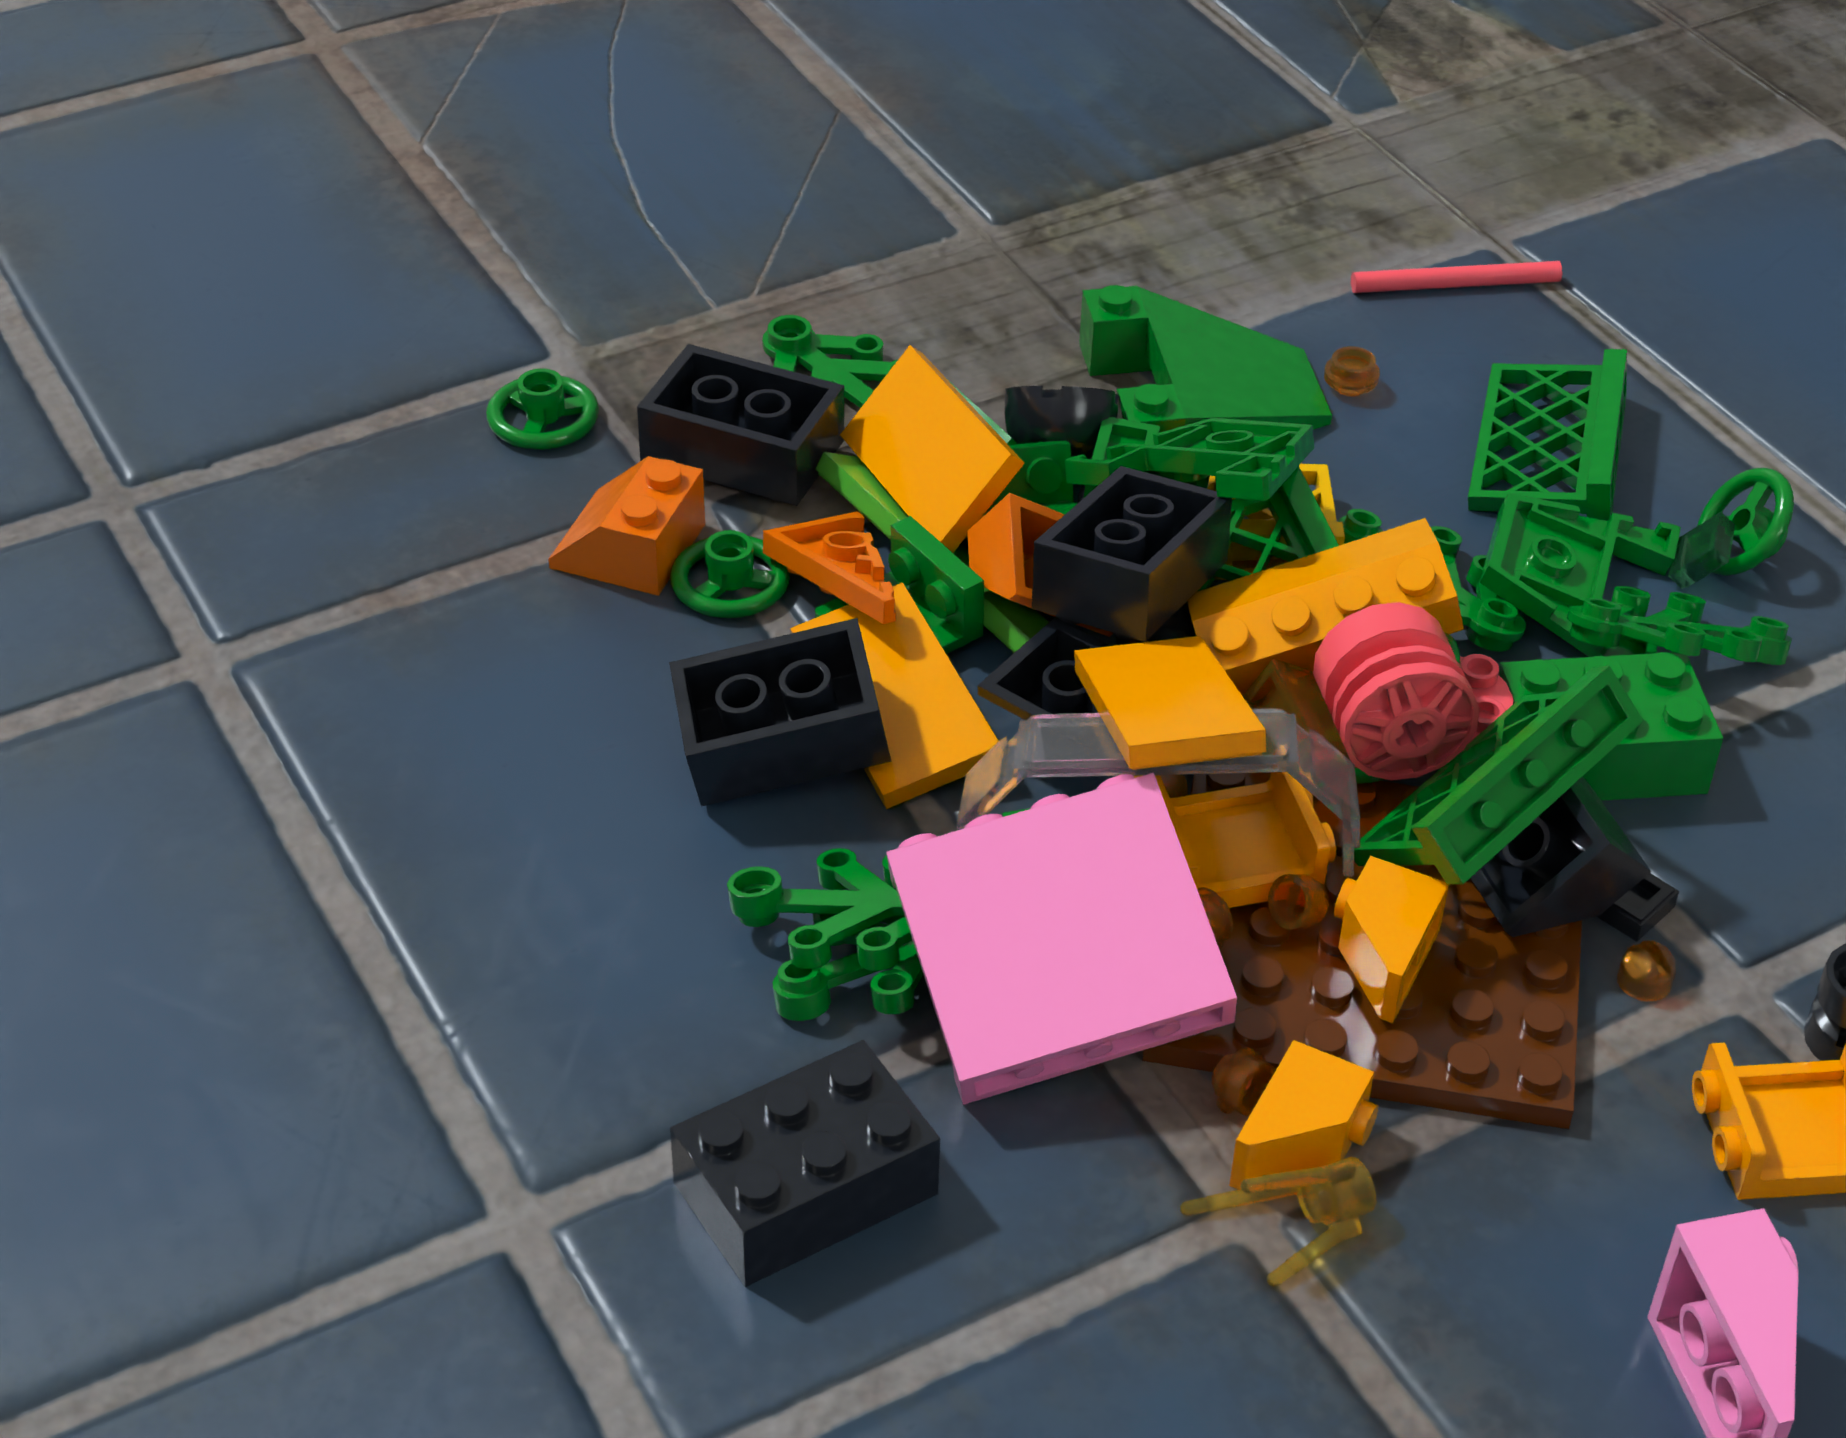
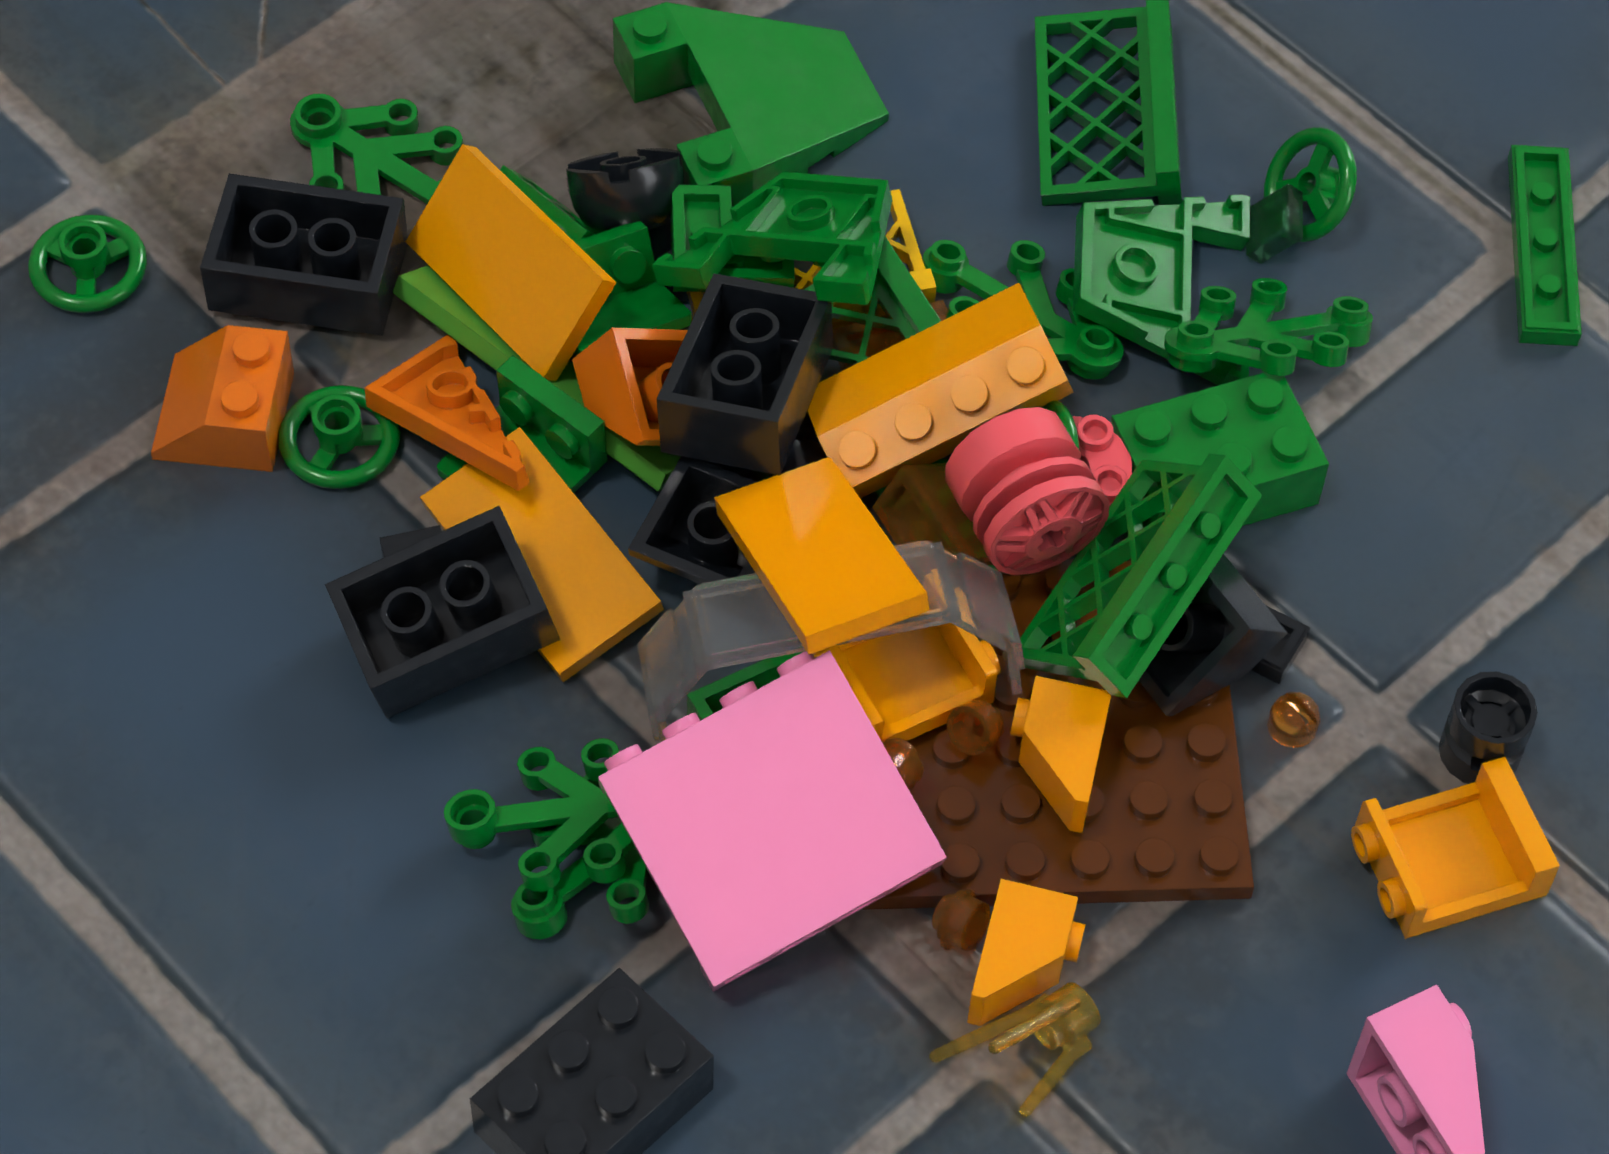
camera: 15 degrees left, 15 degrees up
(1352, 371) = (898, 55): clear orange plate -> none

